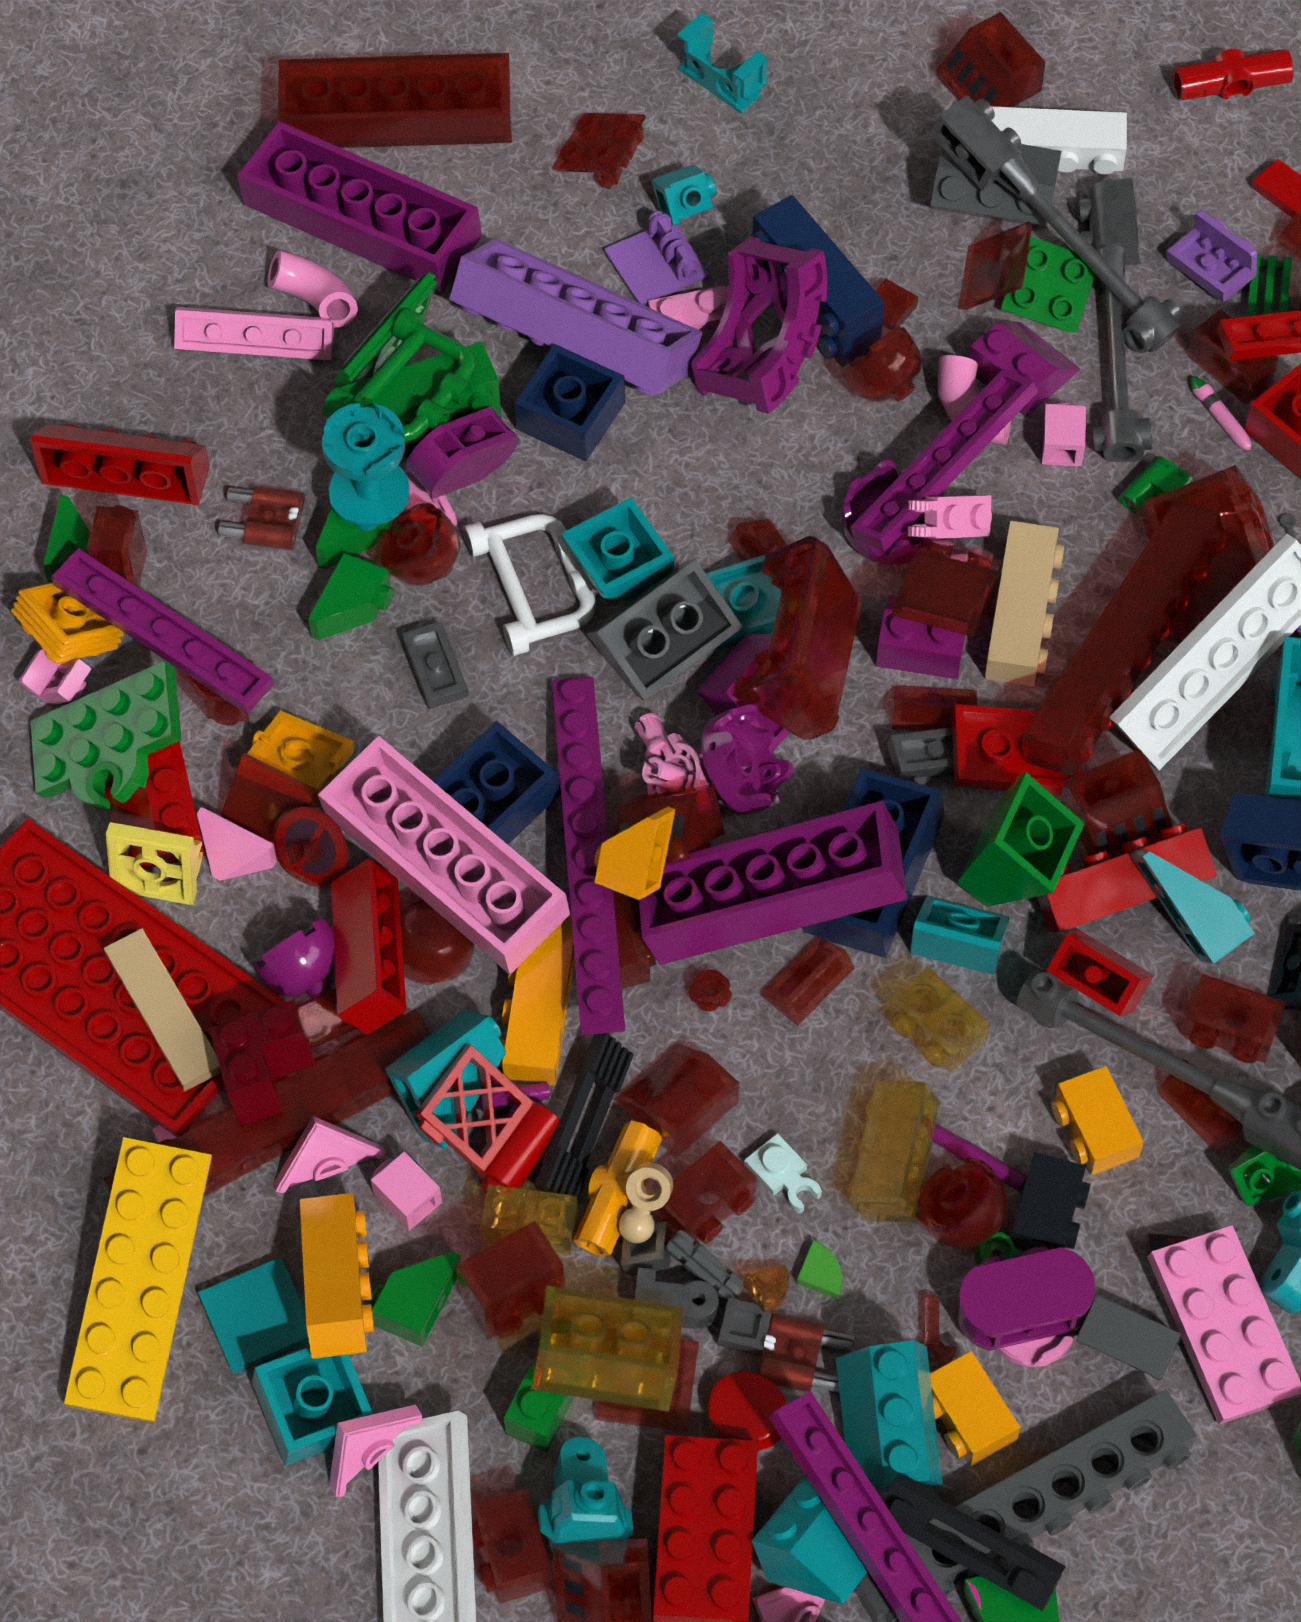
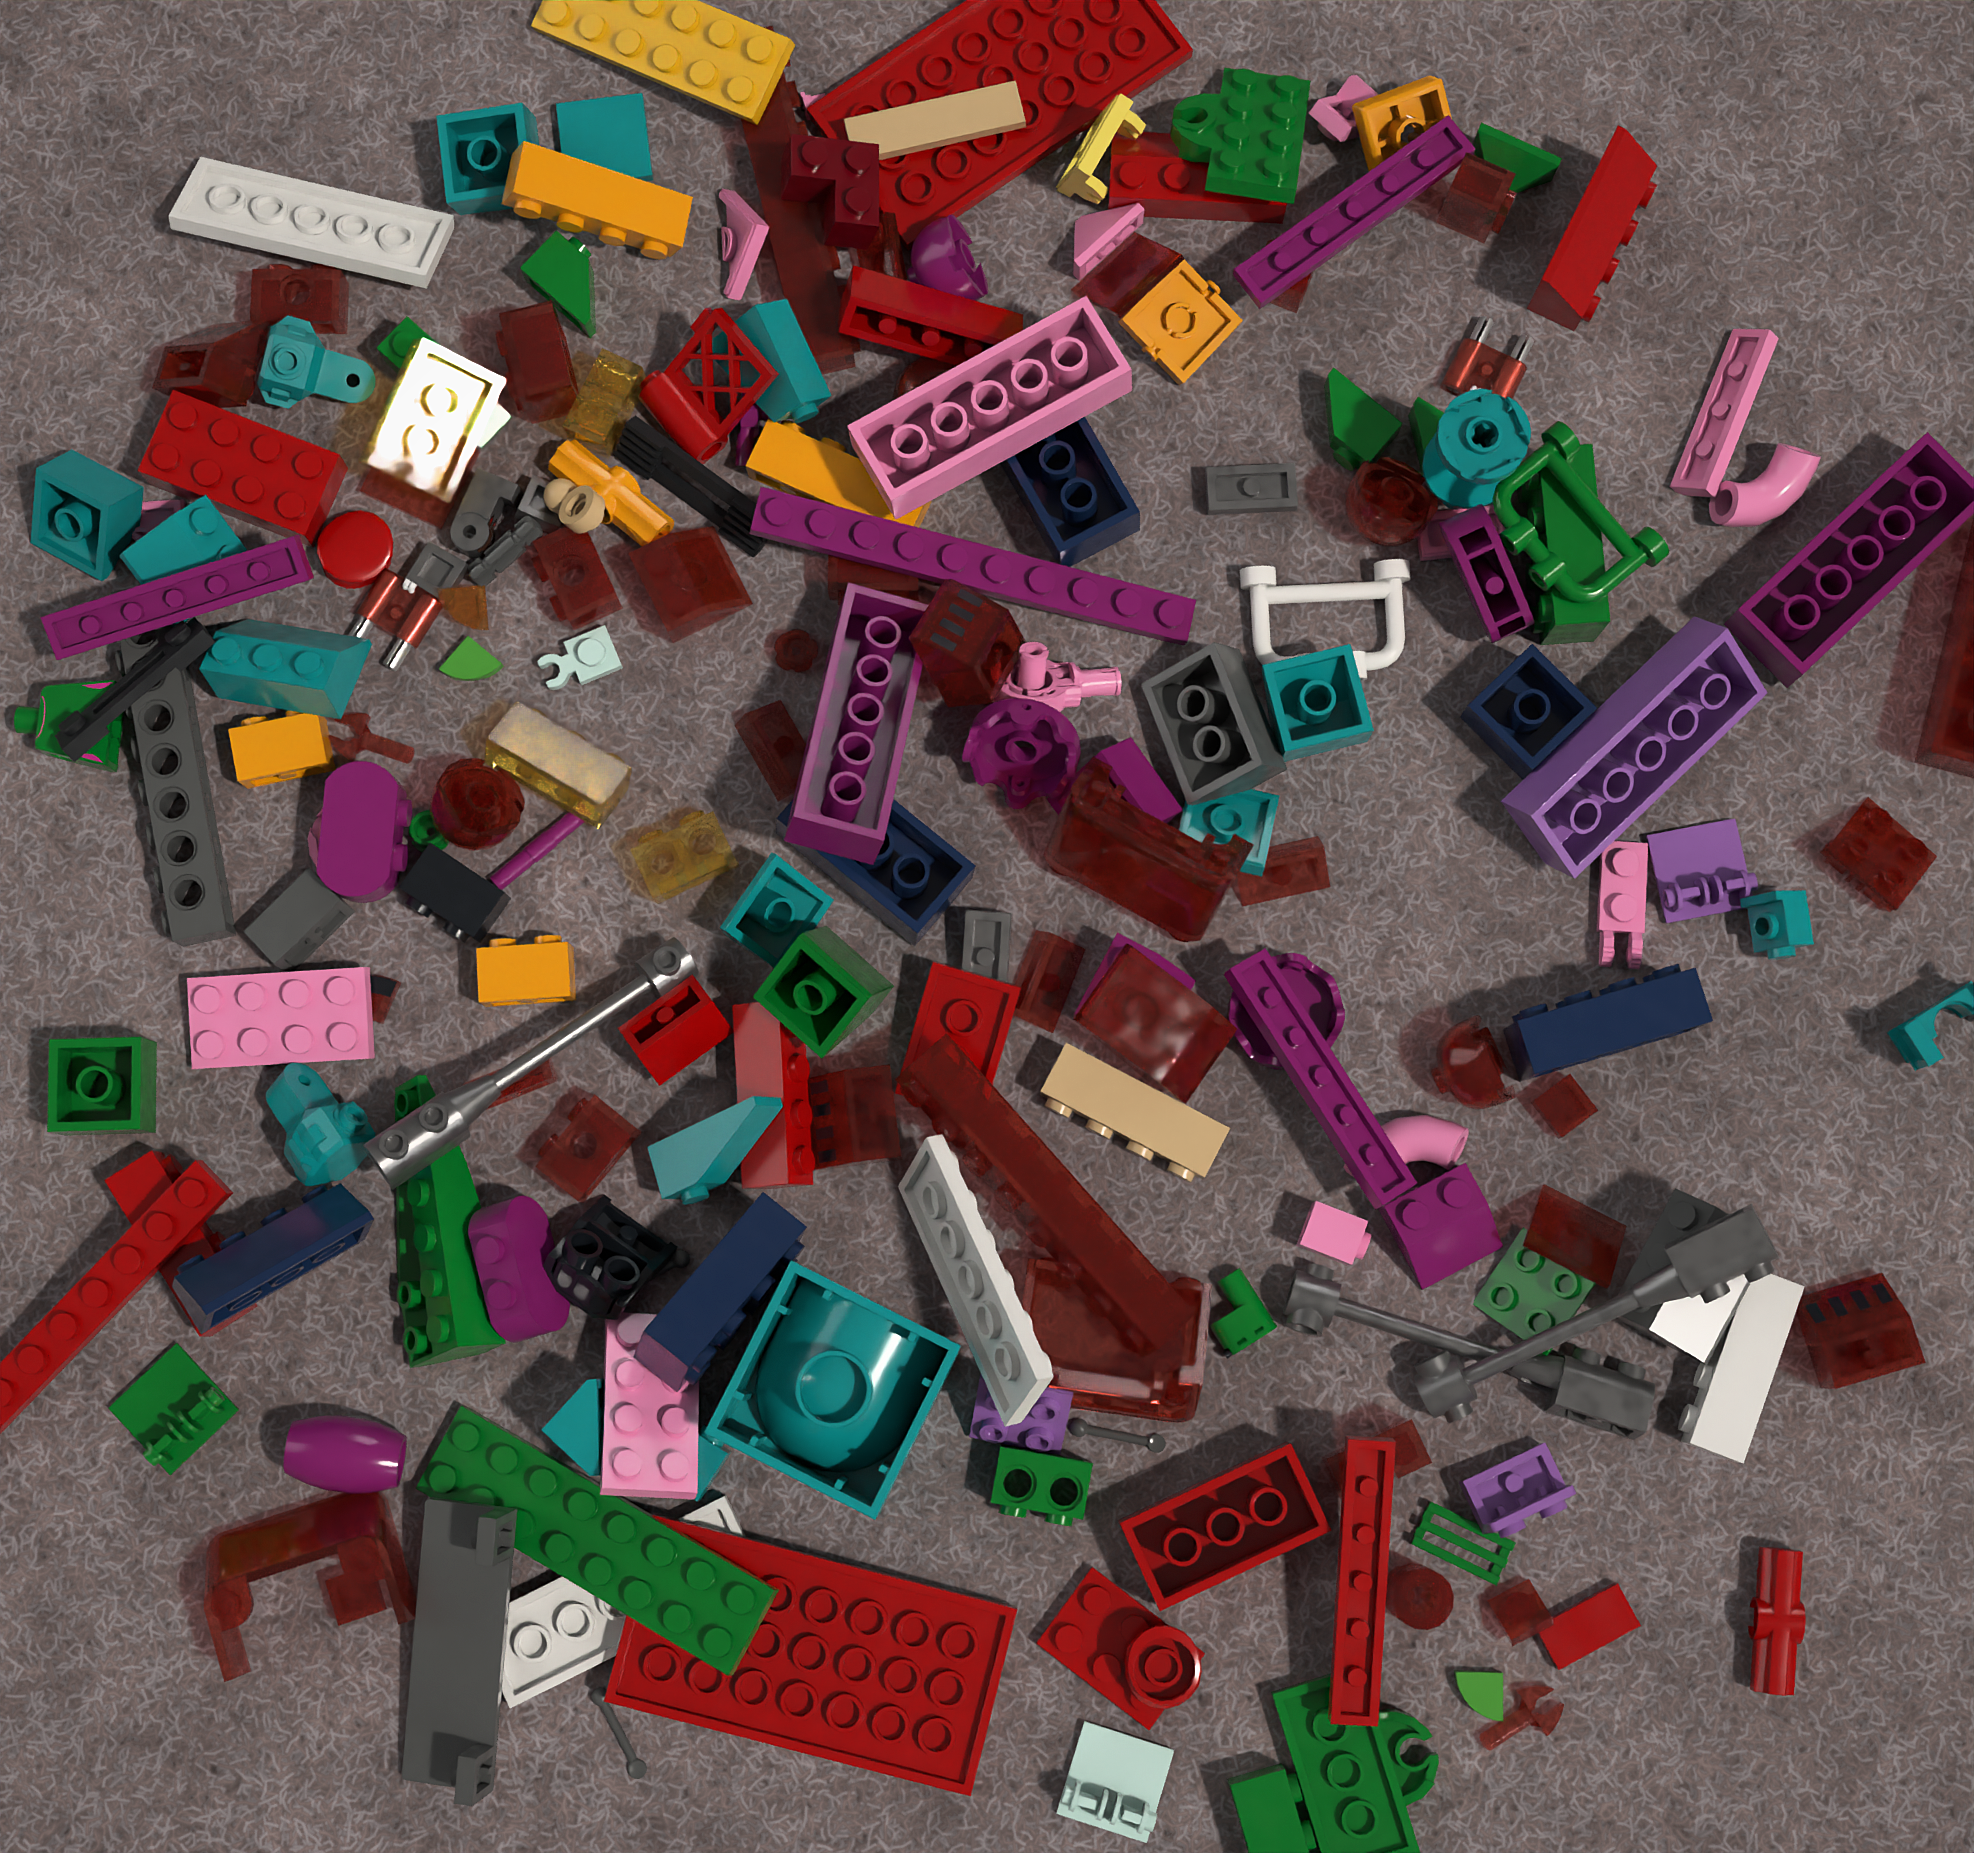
camera: 110 degrees right, 20 degrees up
(310, 846) = (1068, 292): clear red piece -> none
(365, 1441) = (433, 200): bright pink tile -> none
(380, 341) = (1645, 514): green piece -> none
(405, 1190) = (676, 300): bright pink brick -> none
(636, 857) = (922, 589): light orange slope -> none
(750, 292) = (1608, 945): magenta fence -> none
(952, 516) = (1250, 1062): bright pink hinge -> none
(1223, 416) = (1345, 1416): bright pink piece -> none

